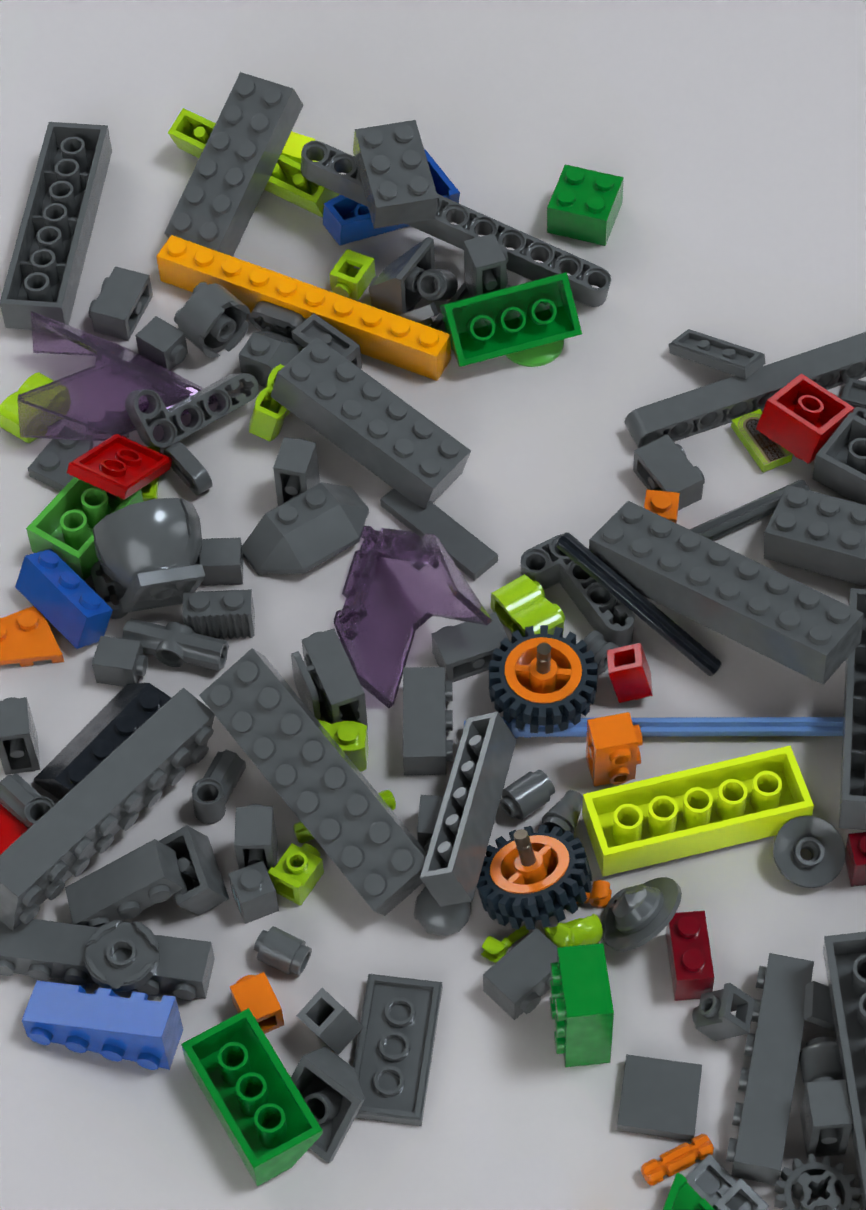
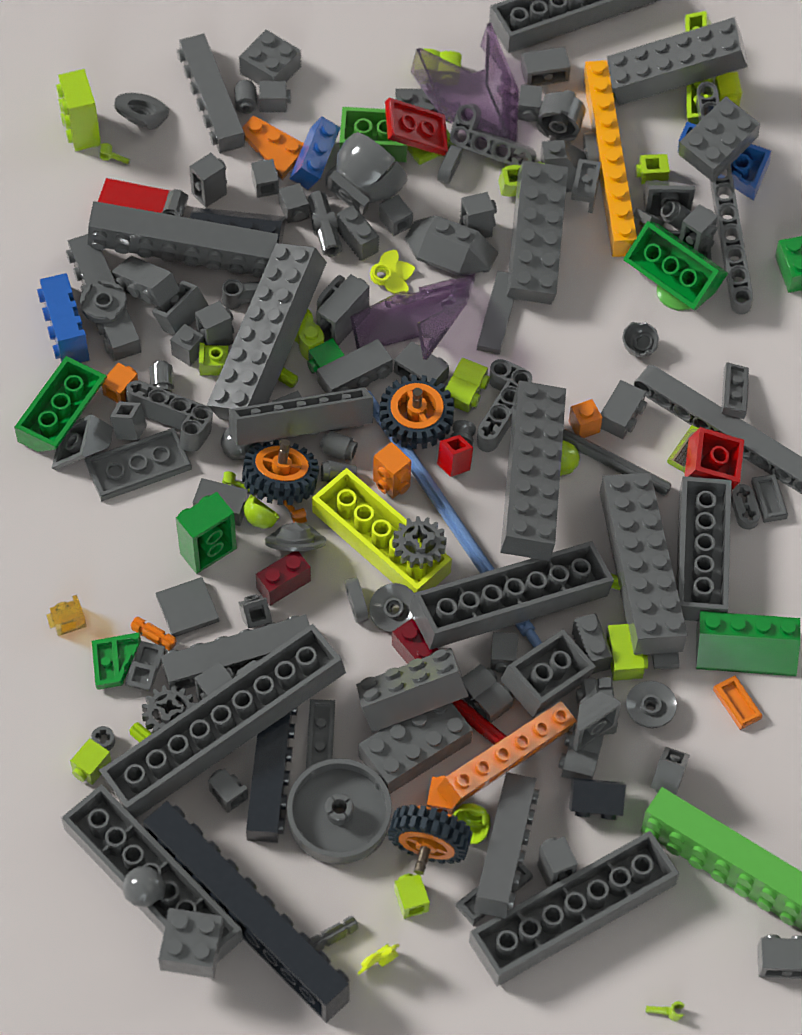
camera: 55 degrees right, 5 degrees up
(53, 674) = (265, 178): none -> dark grey brick
(302, 606) = (395, 272): none -> neon yellow plate
(350, 957) = (175, 411): none -> dark grey beam
(385, 743) = (323, 355): none -> green brick
(584, 406) = (640, 339): none -> dark grey hair
(638, 604) = (503, 434): black axle -> none
(757, 768) = (407, 543): none -> dark grey gear
(770, 889) = (356, 599): none -> dark grey beam

